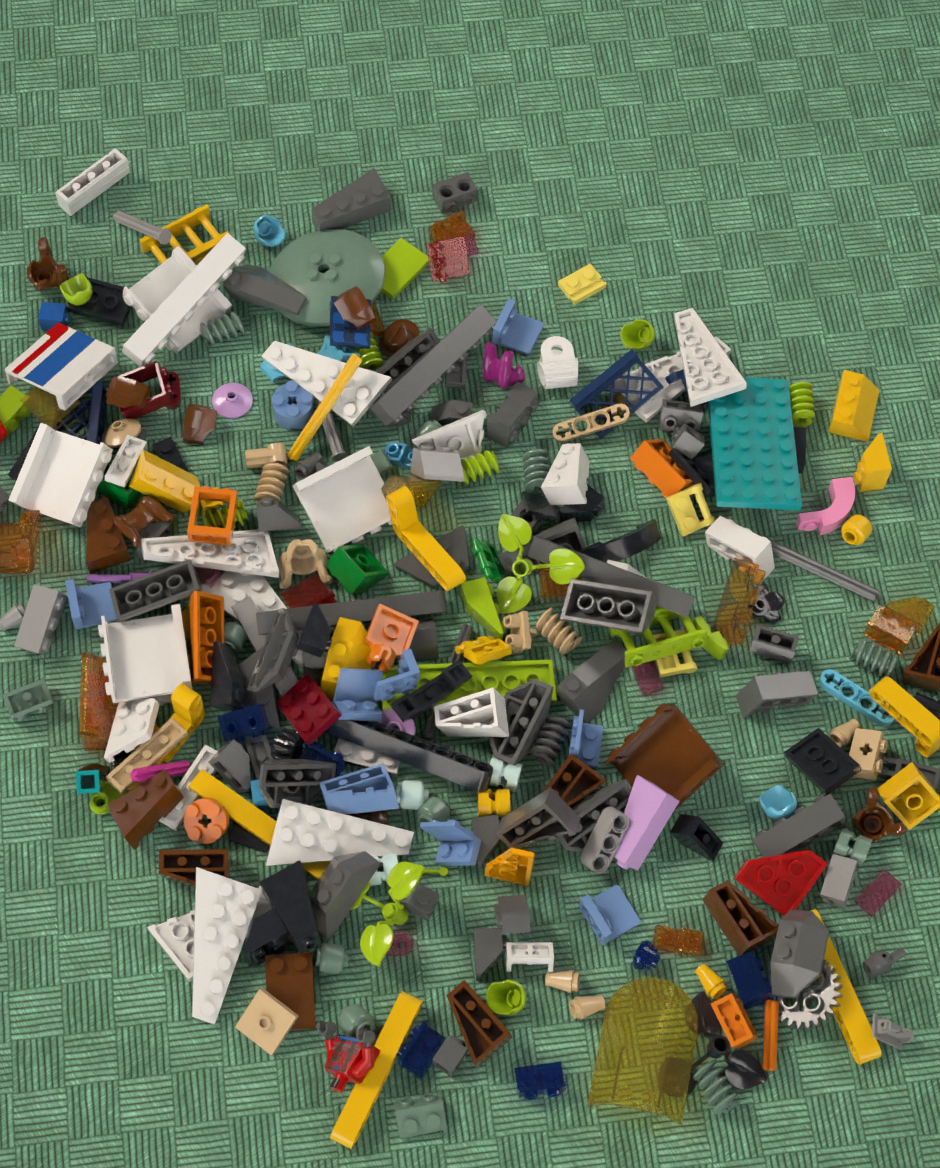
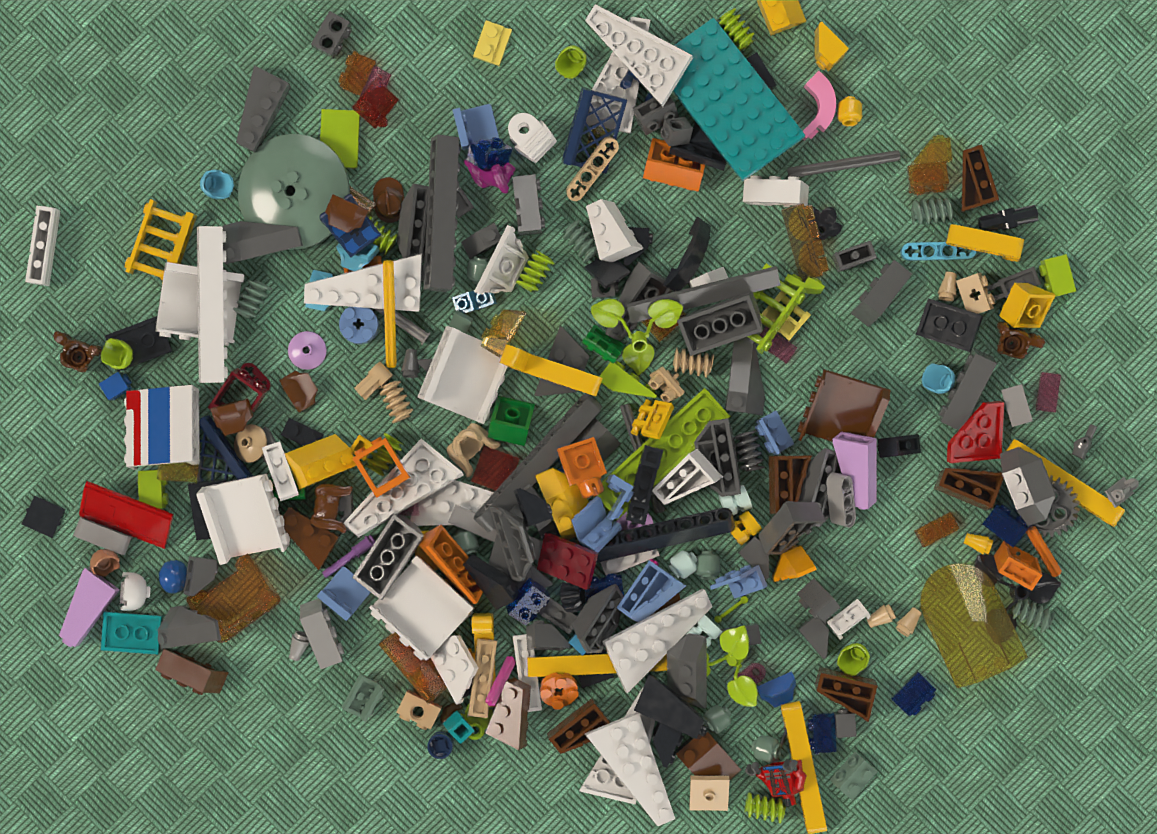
camera: 35 degrees left, 25 degrees up
(58, 789) = (440, 744): none -> dark blue wheel
(75, 756) = (413, 700): none -> tan brick
(162, 235) = (118, 258): light grey axle -> none
(275, 516) = (421, 425): dark grey slope -> none
(308, 1079) = (765, 807): none -> lime piece
(410, 975) = (778, 690): none -> blue slope
(437, 463) = (509, 298): light grey slope -> none
(508, 341) = (489, 153): none -> clear blue brick
(609, 914) = (879, 546): medium blue bracket -> none
(646, 956) = (924, 559): clear blue cone -> none
(684, 512) = (714, 193): light yellow plate -> none
(859, 849) = (1016, 371): sand green wheel -> none

